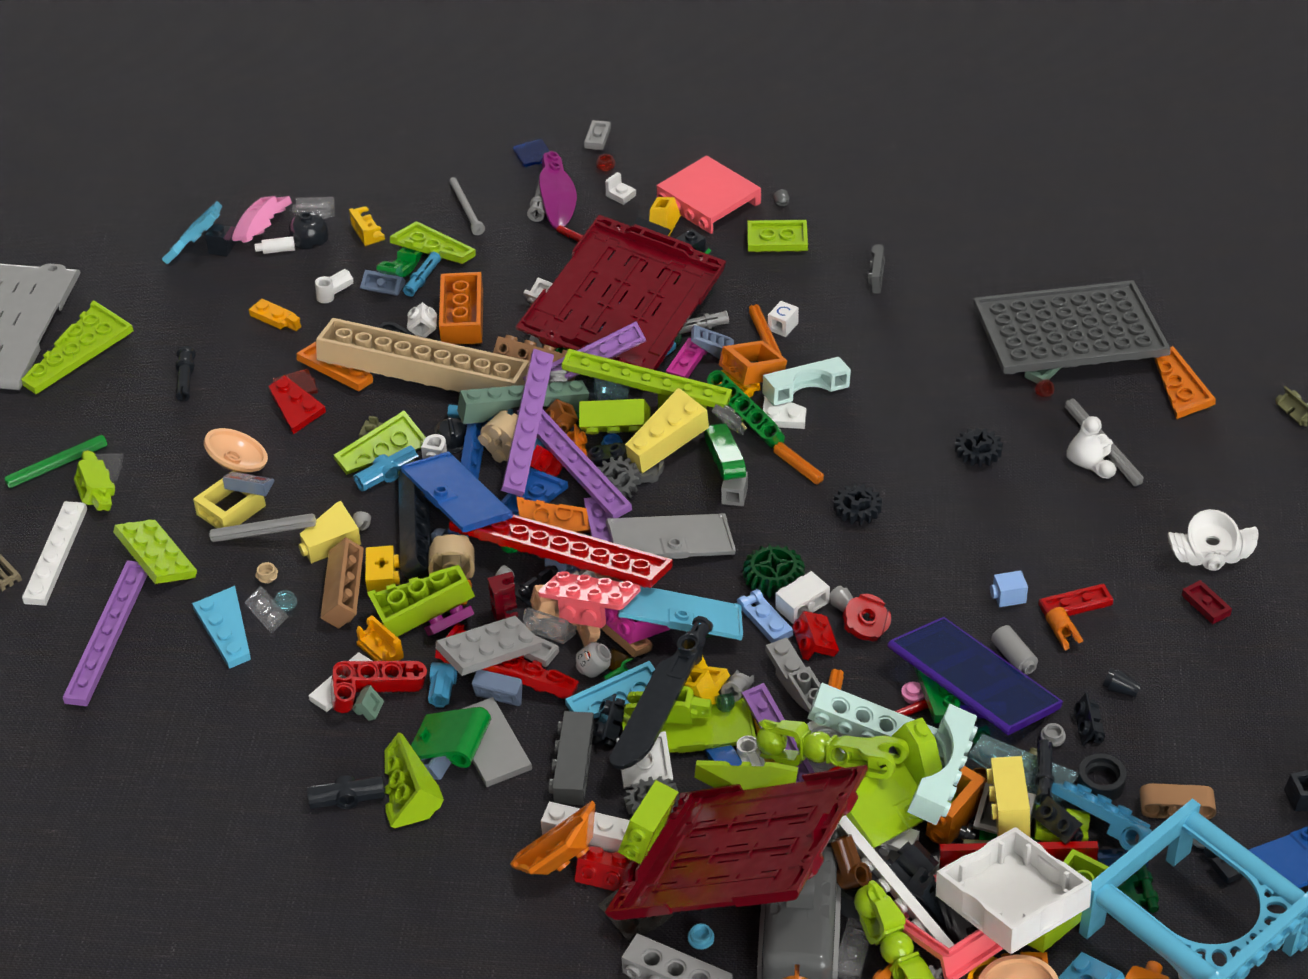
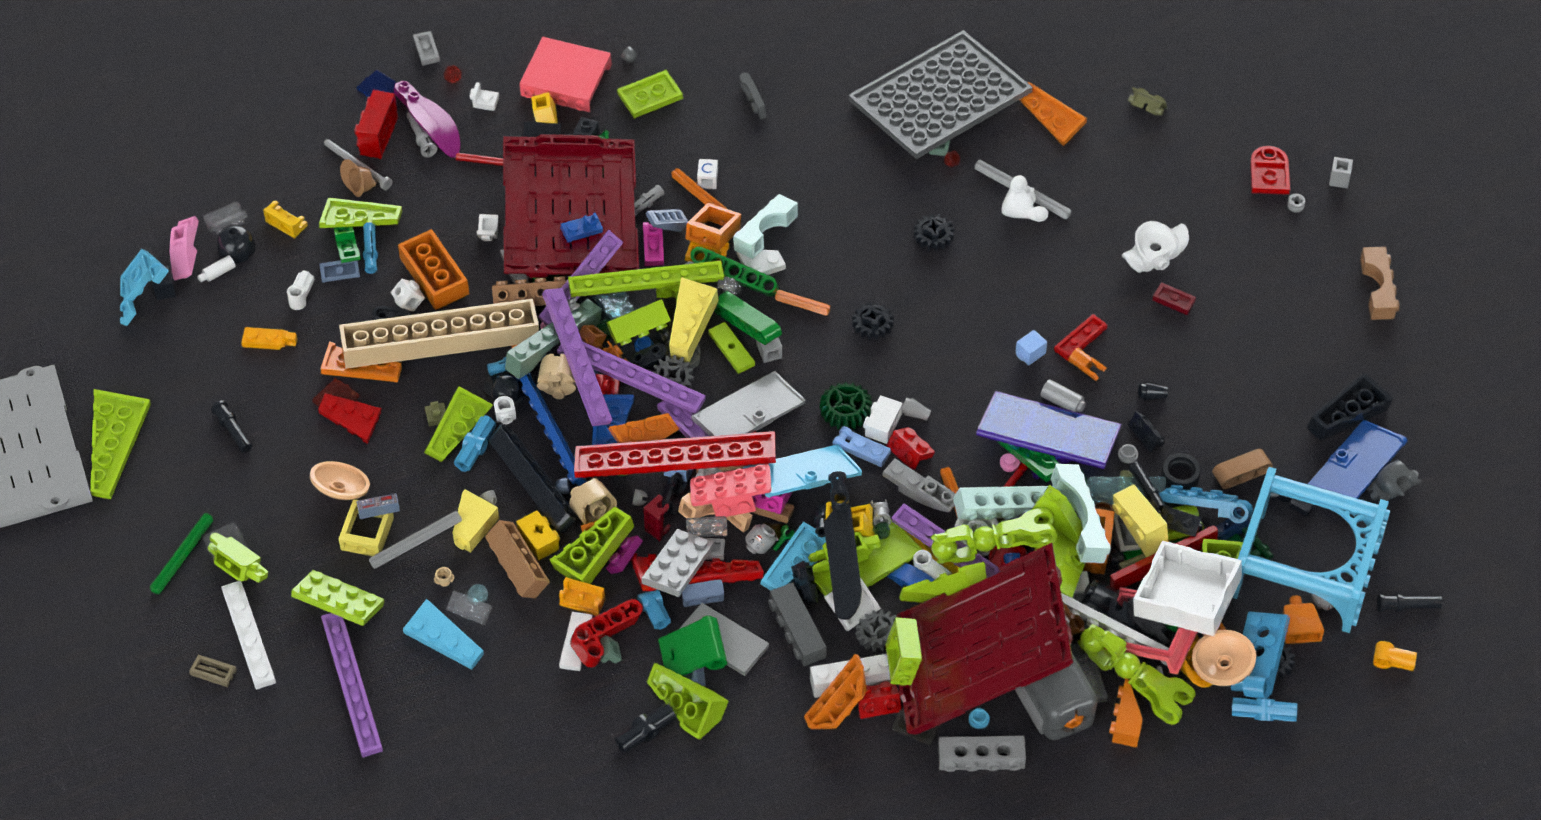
camera: 30 degrees left, 10 degrees up
(454, 214) = (356, 178): none -> medium nougat piece
(456, 492) = (560, 442): blue door -> none
(502, 176) = (376, 124): none -> red brick
(618, 316) = (581, 228): none -> blue plate
(696, 476) = (731, 347): none -> lime tile
(877, 612) = (934, 422): plate -> none

